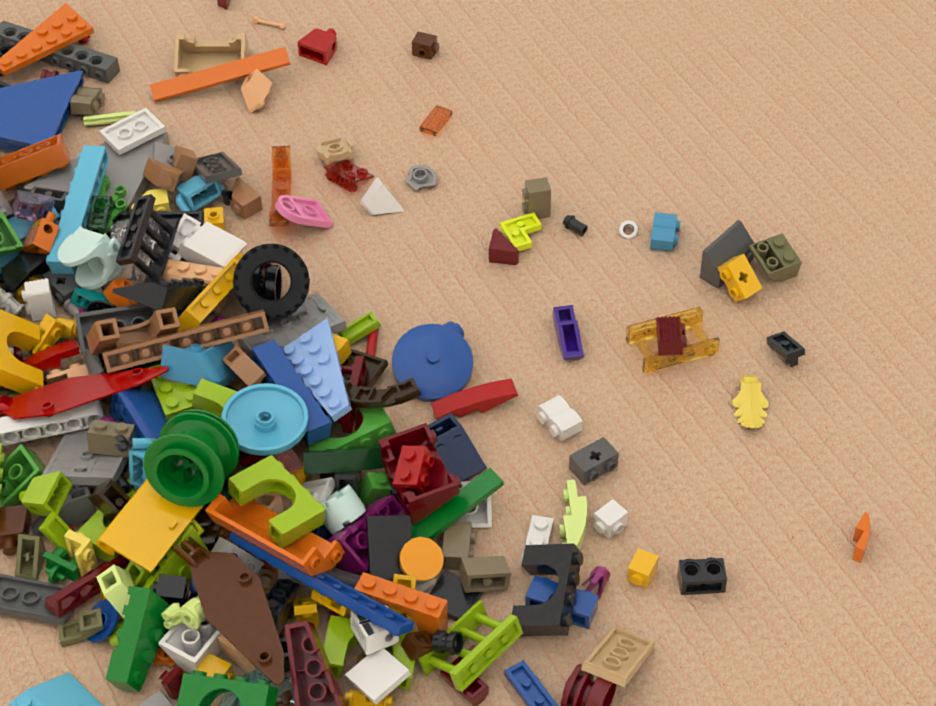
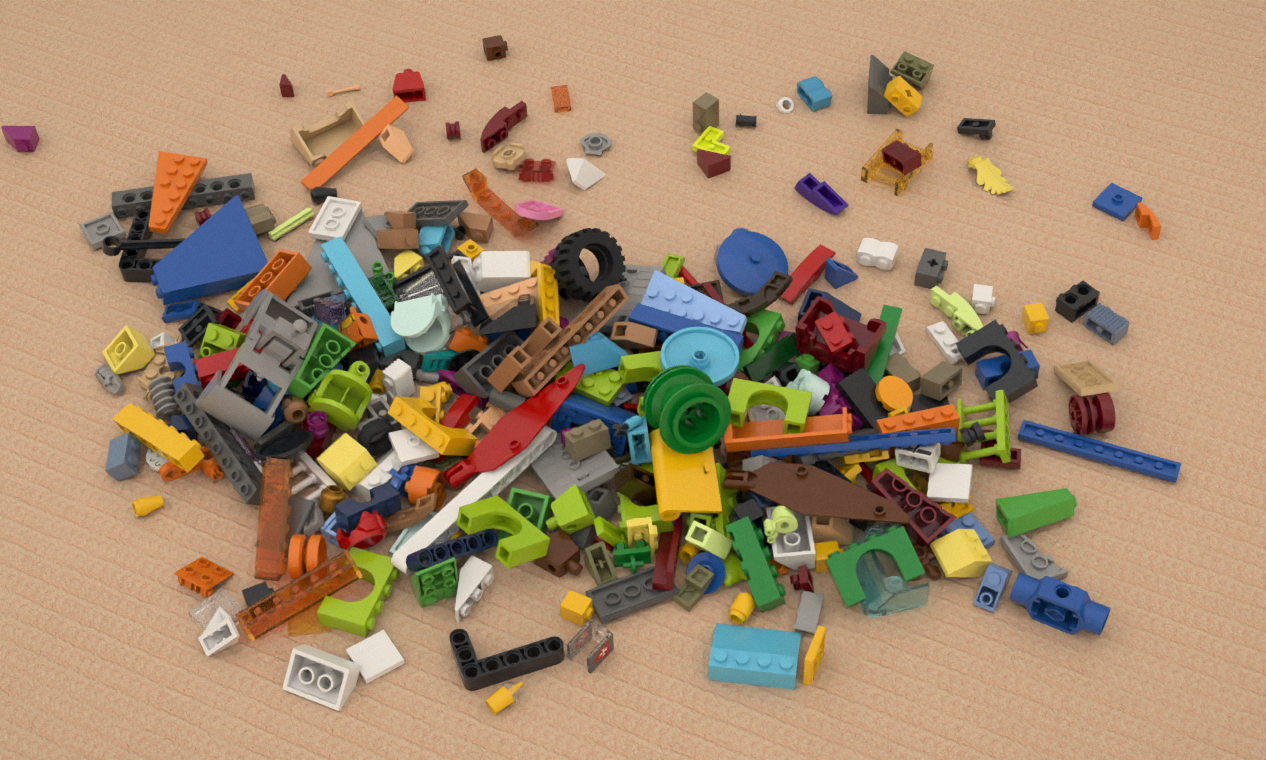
camera: 35 degrees left, 0 degrees up
(96, 672) = (742, 608): none -> yellow brick
(157, 105) = (320, 194): none -> black cone
(315, 102) = (453, 130): none -> dark red wheel
(359, 116) = (500, 123): none -> dark red slope
(506, 416) = (838, 273): none -> blue slope
(708, 616) = (1106, 323): none -> sand blue brick
(854, 499) = (1117, 201): none -> blue plate

